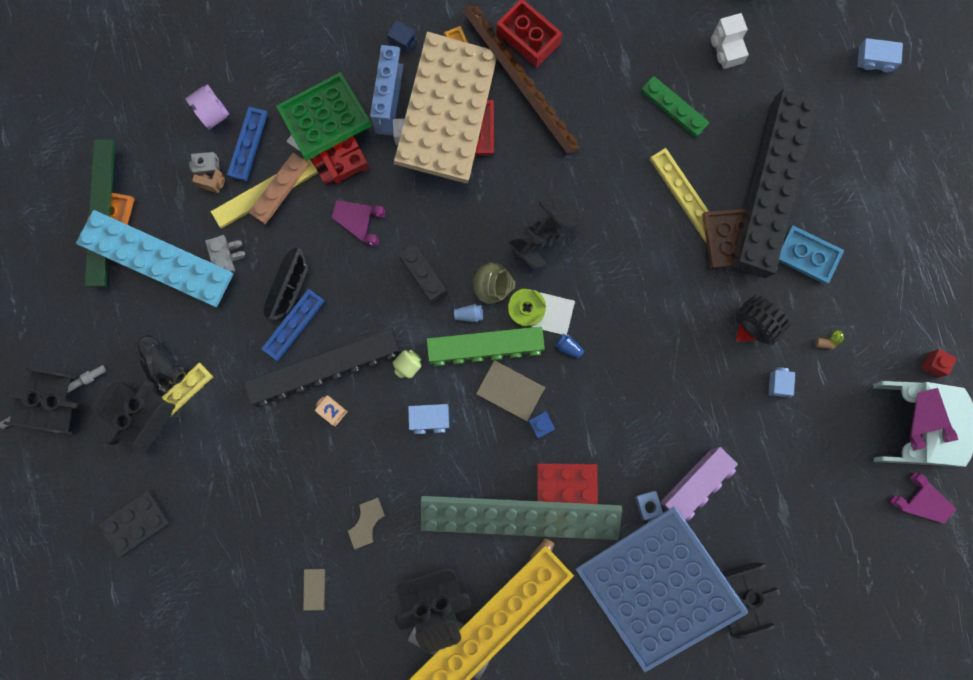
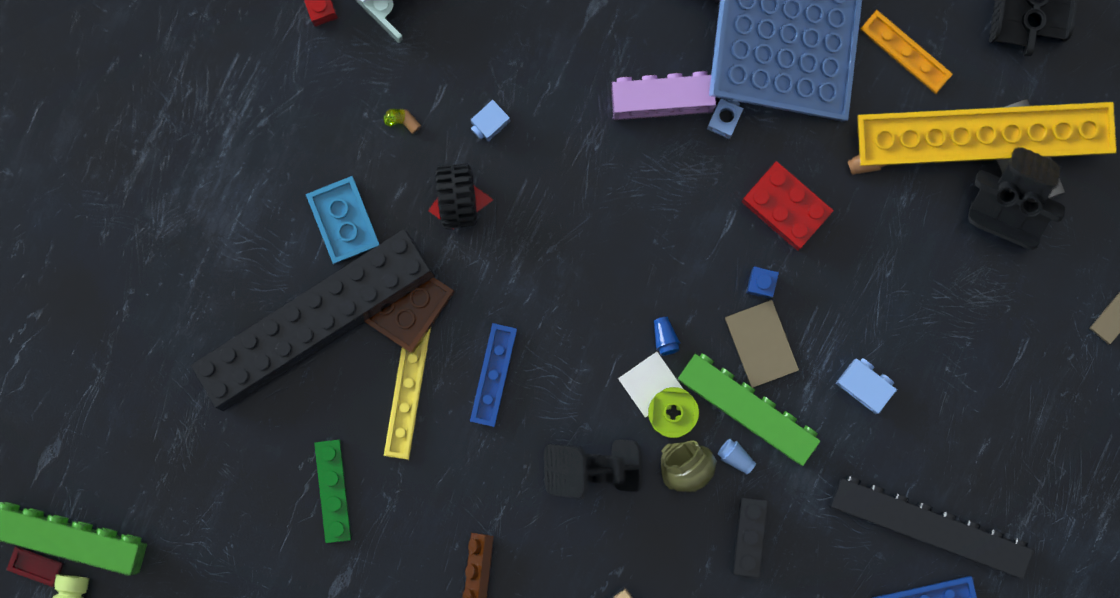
camera: 135 degrees left, 5 degrees up
(330, 410) = (958, 478): light nougat brick -> none
(362, 532) = (1024, 331): dark tan tile -> none
(407, 364) = (842, 458): yellowish green head -> none
(520, 518) = (860, 212): sand green plate -> none
(577, 645) = (906, 51): none -> light orange tile
(646, 242) = (493, 375): none -> blue plate
(729, 41) = (216, 507): white brick -> none
(880, 55) = (73, 358): light blue brick -> none

